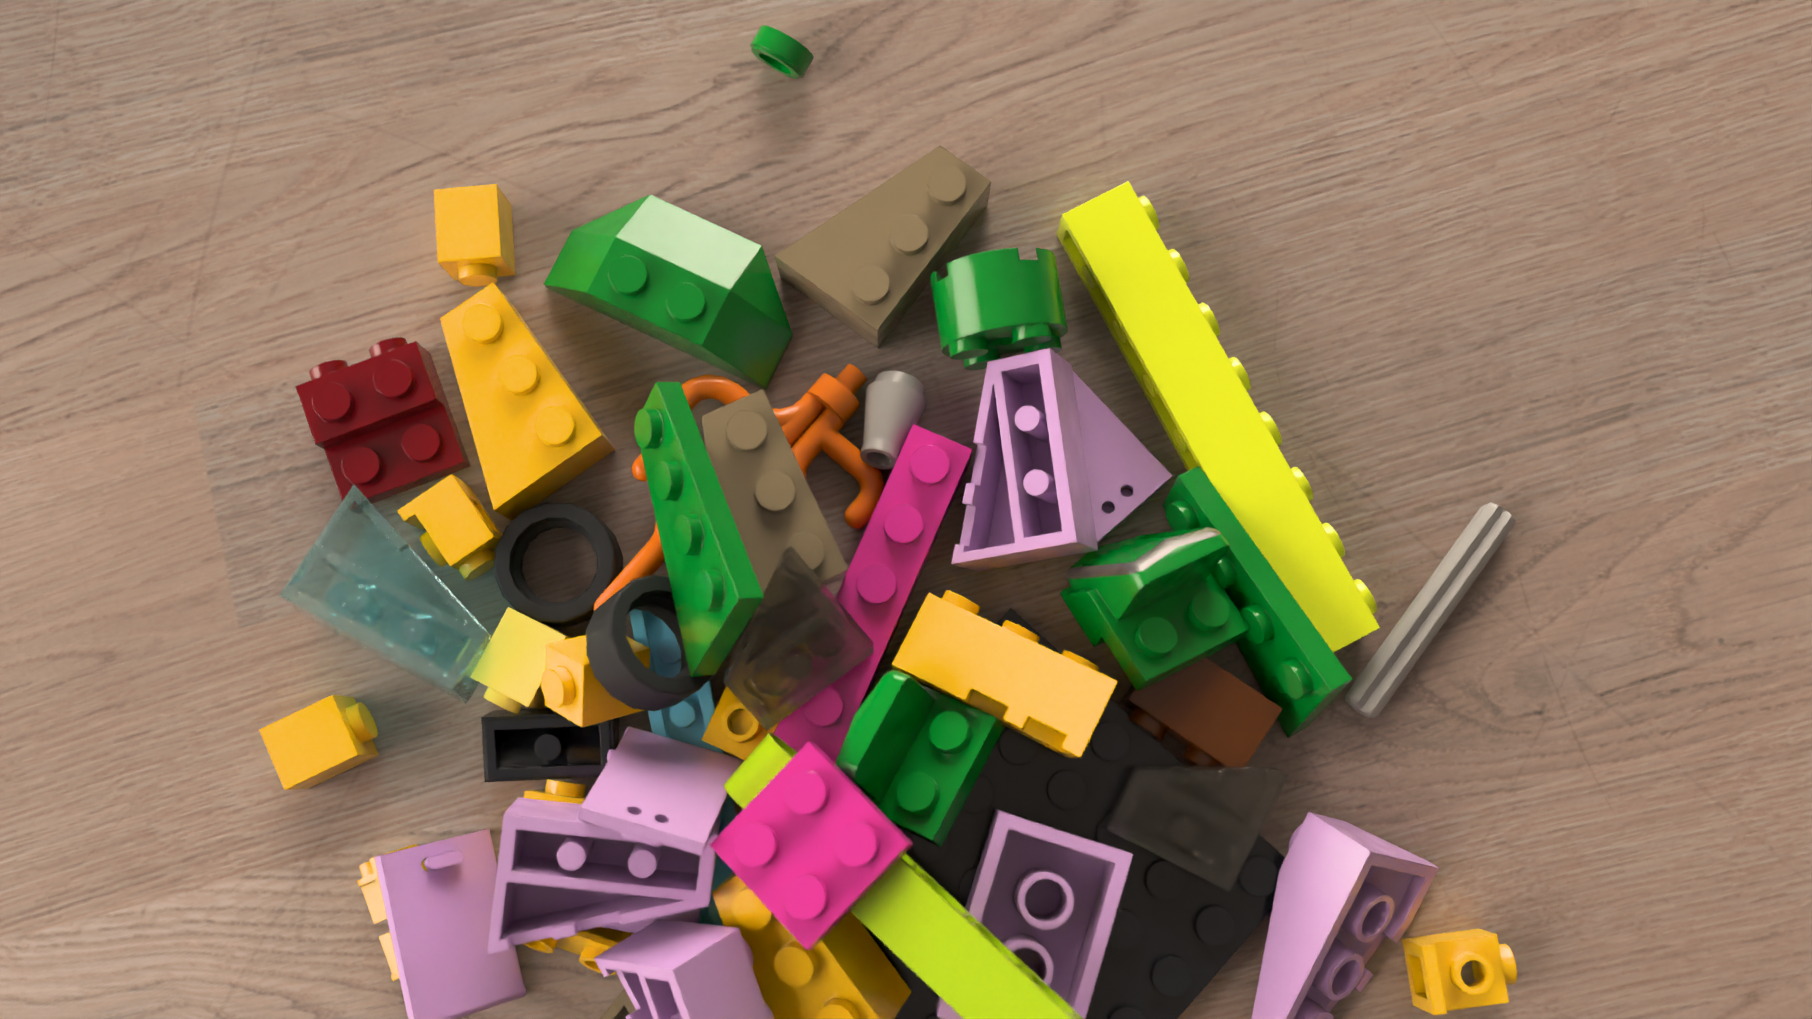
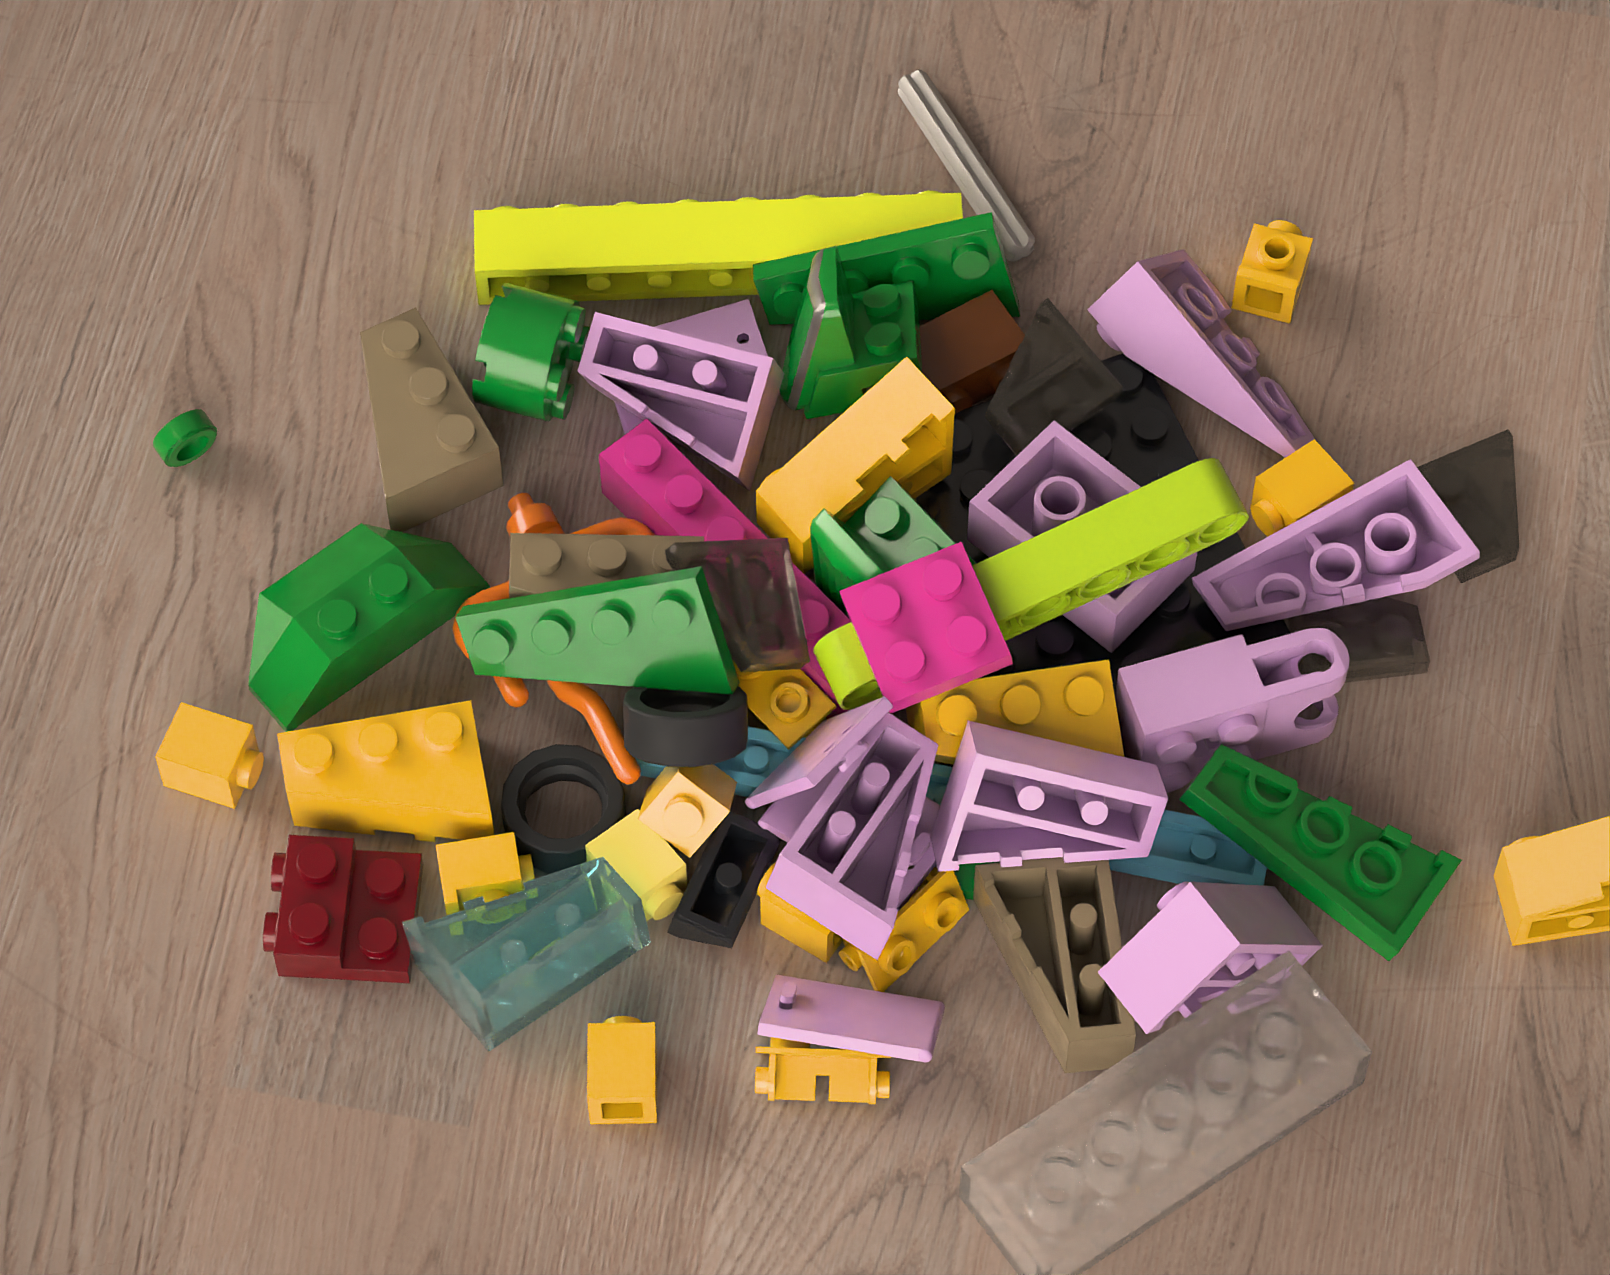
camera: 65 degrees left, 20 degrees down
(890, 411) = (575, 485): light grey cone -> none

